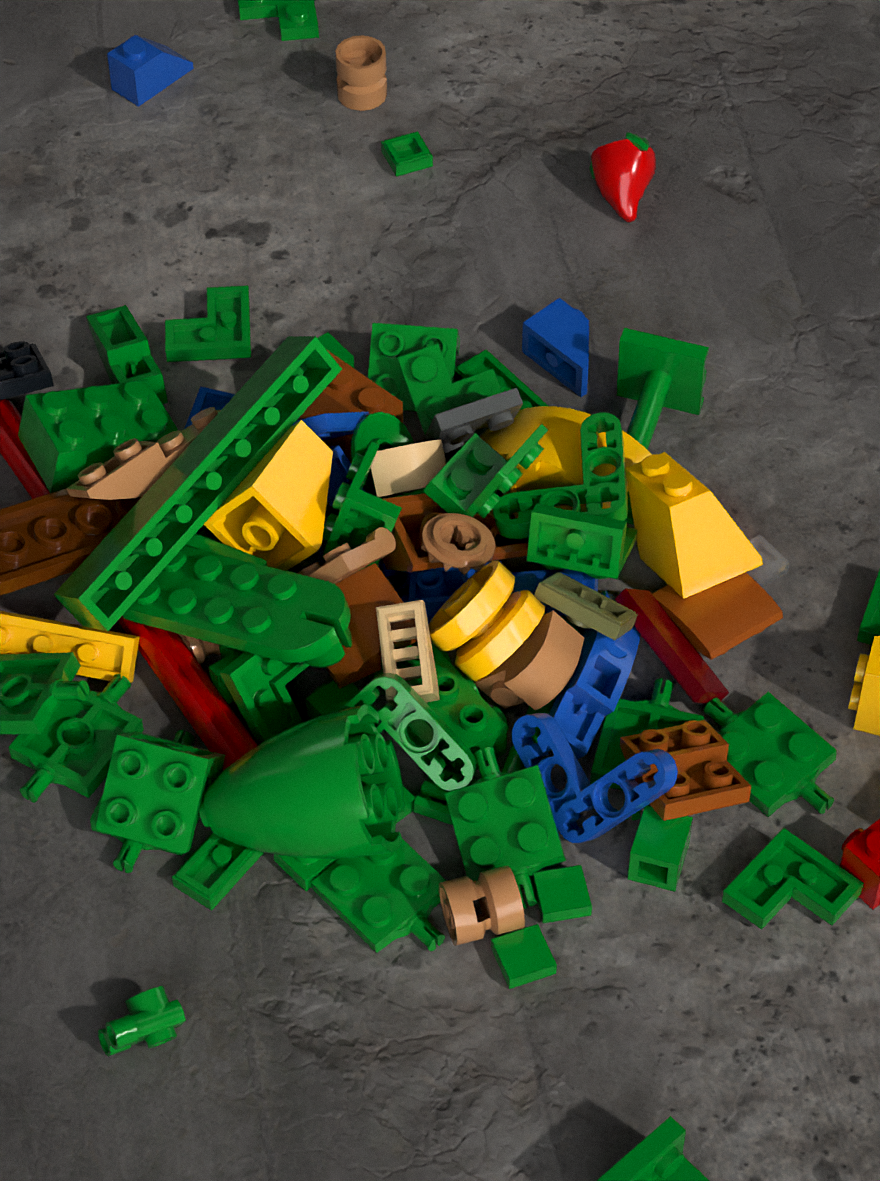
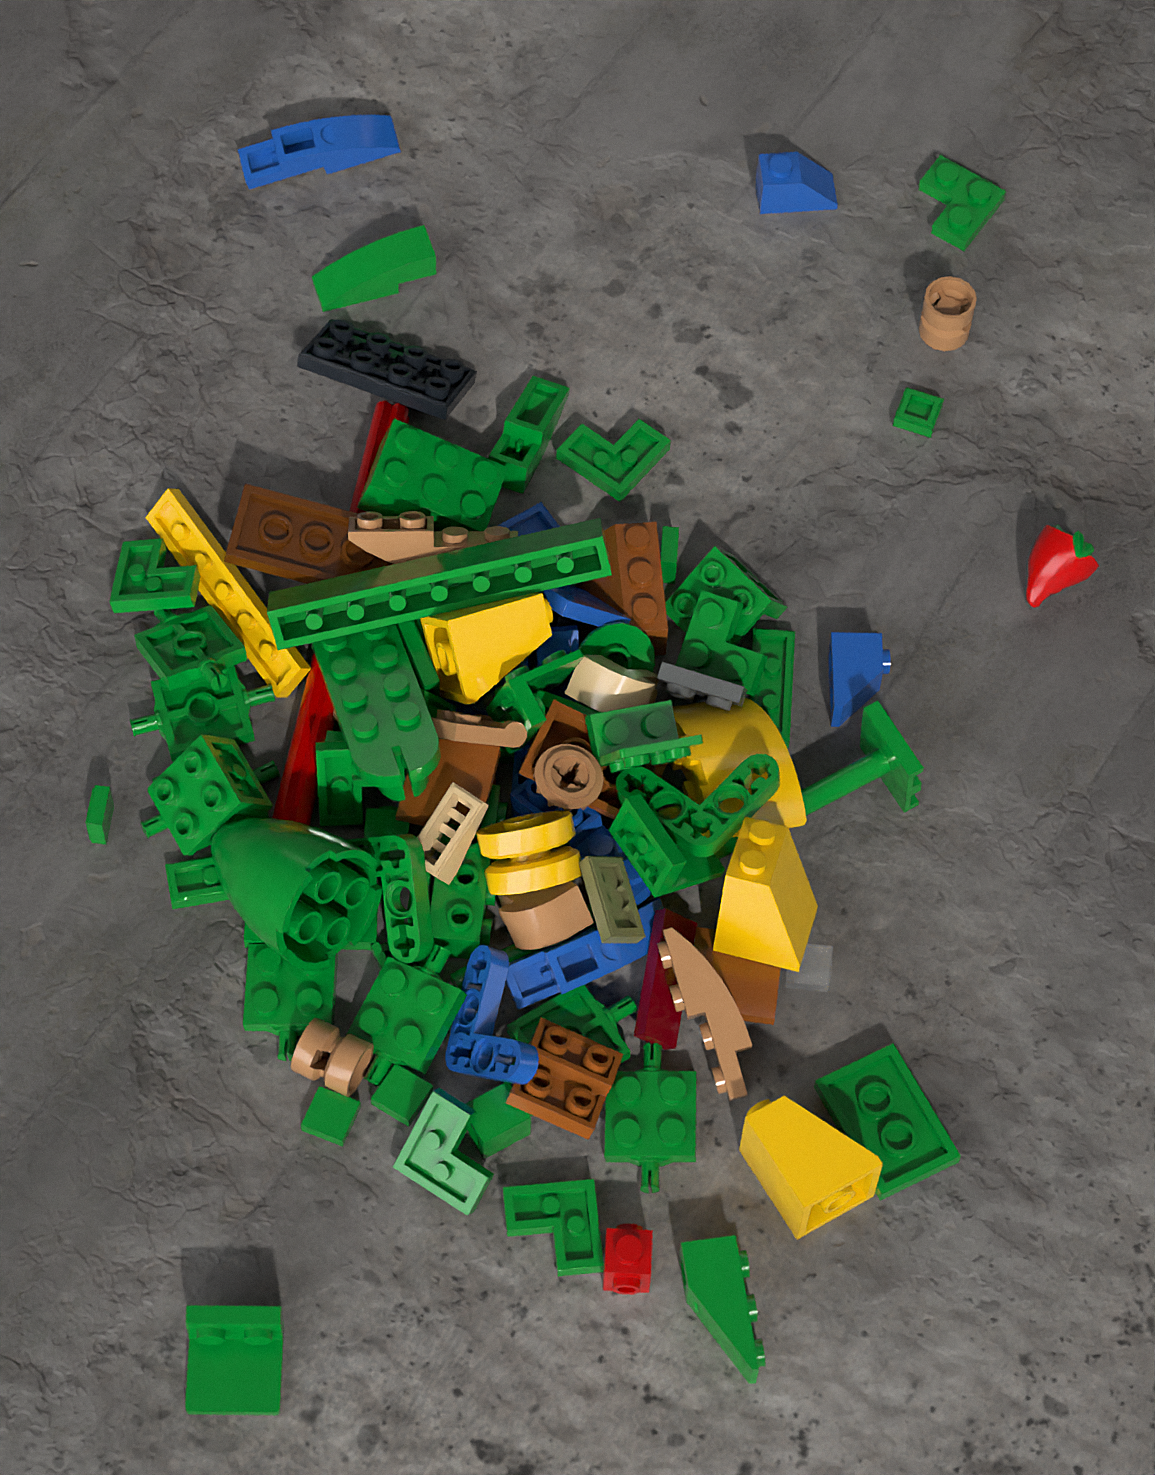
camera: 40 degrees right, 10 degrees up
(74, 880) = (99, 814): none -> green tile
(149, 1019) = (52, 953): green plate -> none
(643, 913) = (433, 1158): none -> plate
(723, 623) = (704, 993): none -> medium nougat slope

